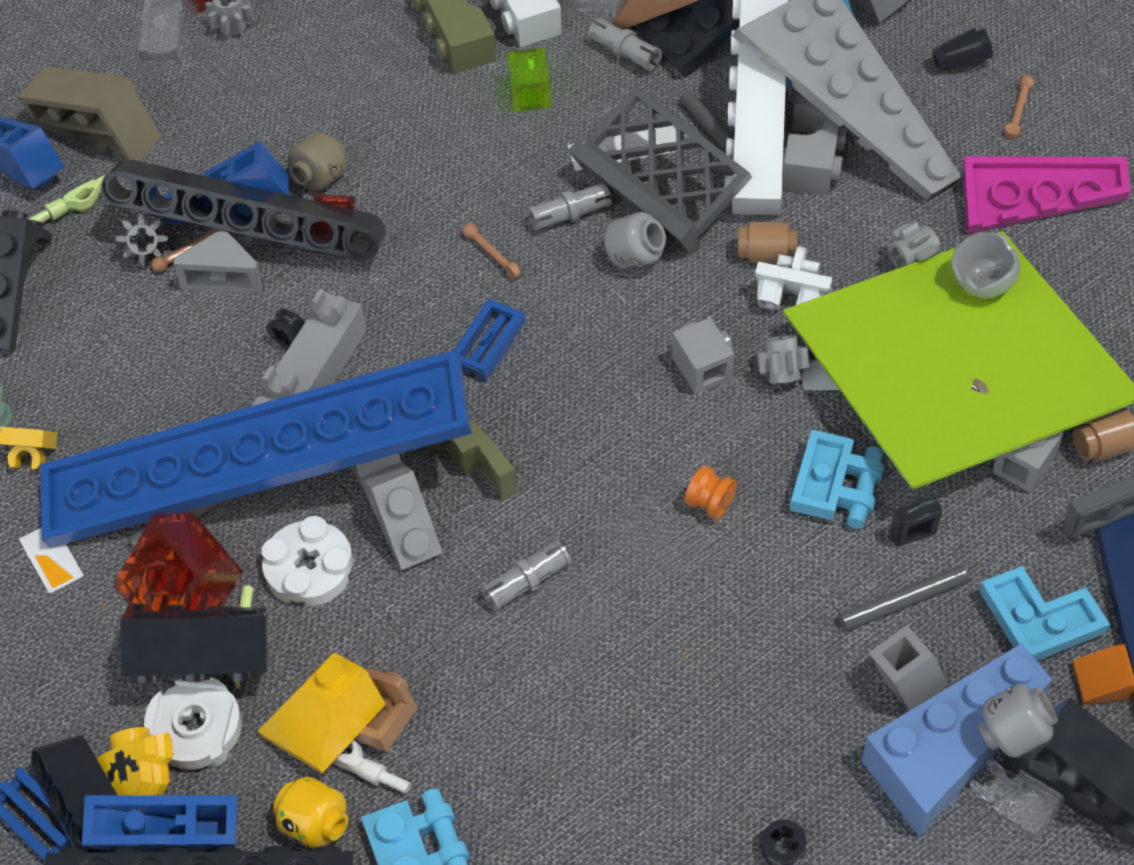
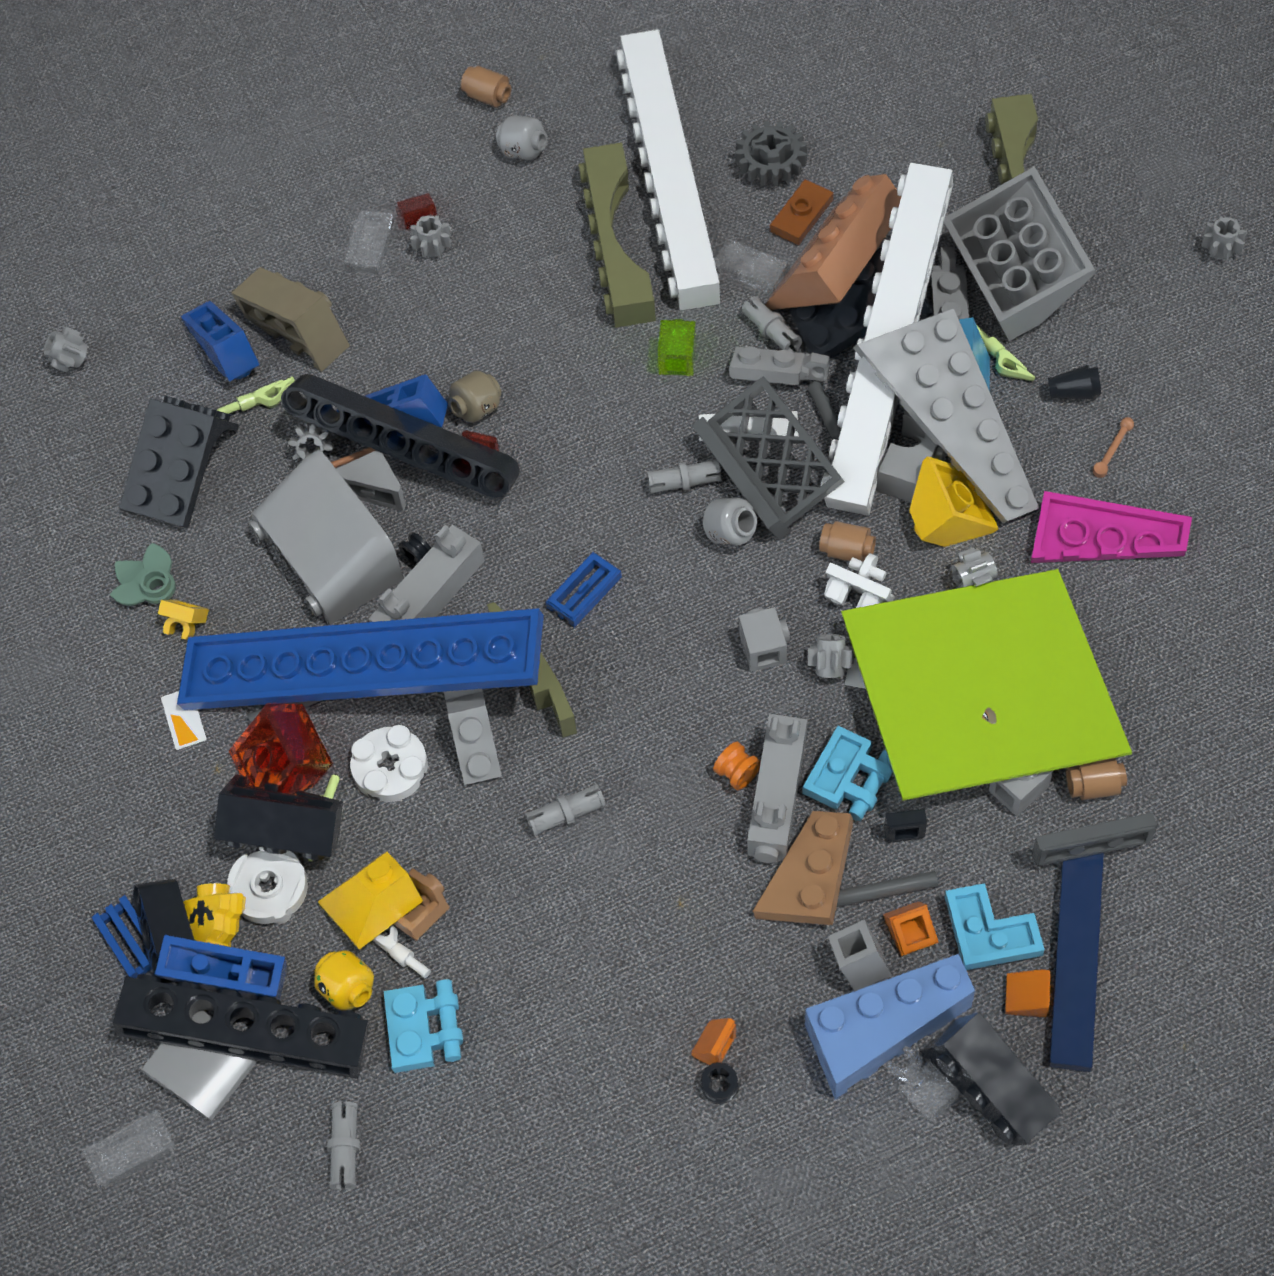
camera: 15 degrees right, 5 degrees up
(184, 329) = (327, 538): none -> light grey windscreen
(471, 232) = (593, 484): nougat hinge -> none
(656, 80) = (778, 366): none -> light grey hinge
(762, 508) = (777, 788): none -> light grey brick
(765, 796) = (715, 1041): none -> orange slope
(823, 593) = (810, 874): none -> medium nougat wing
(866, 189) = (947, 506): none -> yellow slope
(885, 43) = (1005, 358): none -> yellowish green hand
(952, 631) = (911, 927): none -> orange slope
(985, 265) = (1025, 604): light grey hair -> none
(1017, 720) = (929, 1022): light grey head -> none

